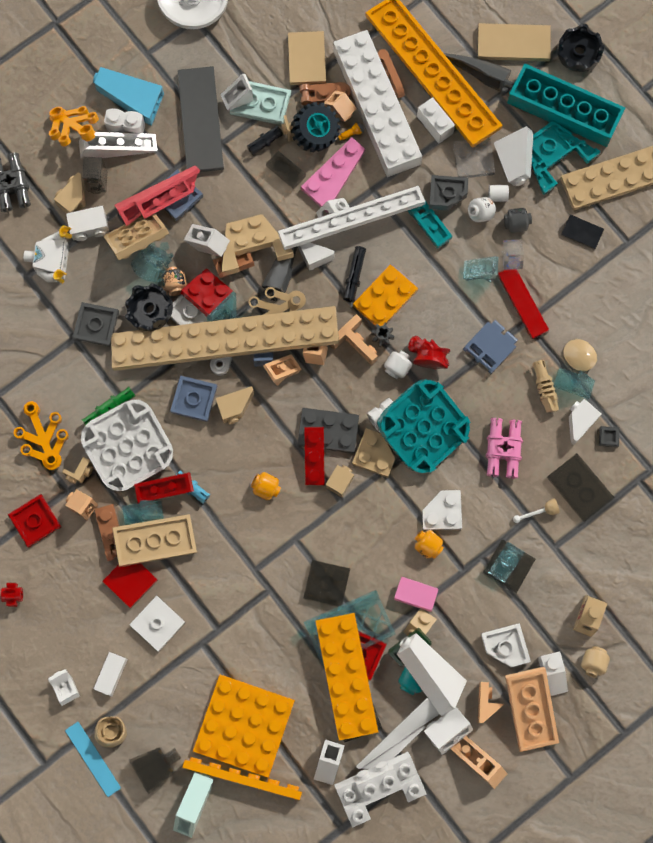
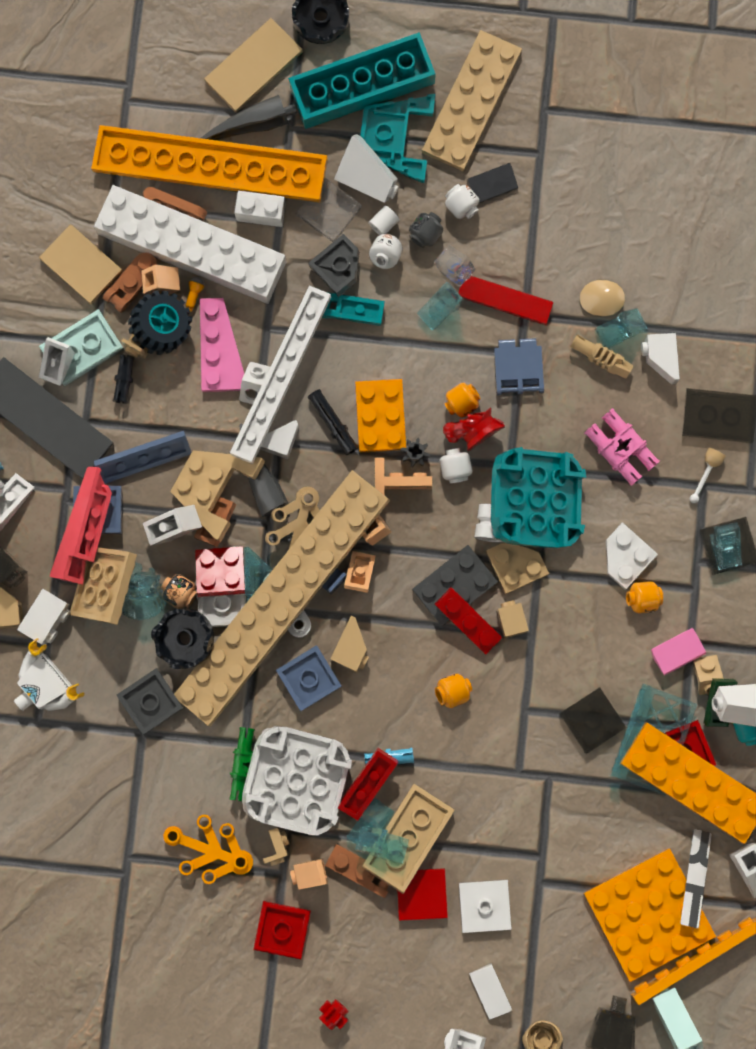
camera: 45 degrees left, 5 degrees up
(135, 527) = (381, 844): none -> clear light blue slope
(230, 191) = (143, 457): none -> sand blue plate
(286, 169) = (171, 387): clear smoke plate -> none
(291, 732) = (696, 878): none -> sticker
(440, 332) = (462, 399): none -> light orange head
(554, 224) = (462, 201): none -> white head
(609, 436) = (698, 346): dark grey tile -> none

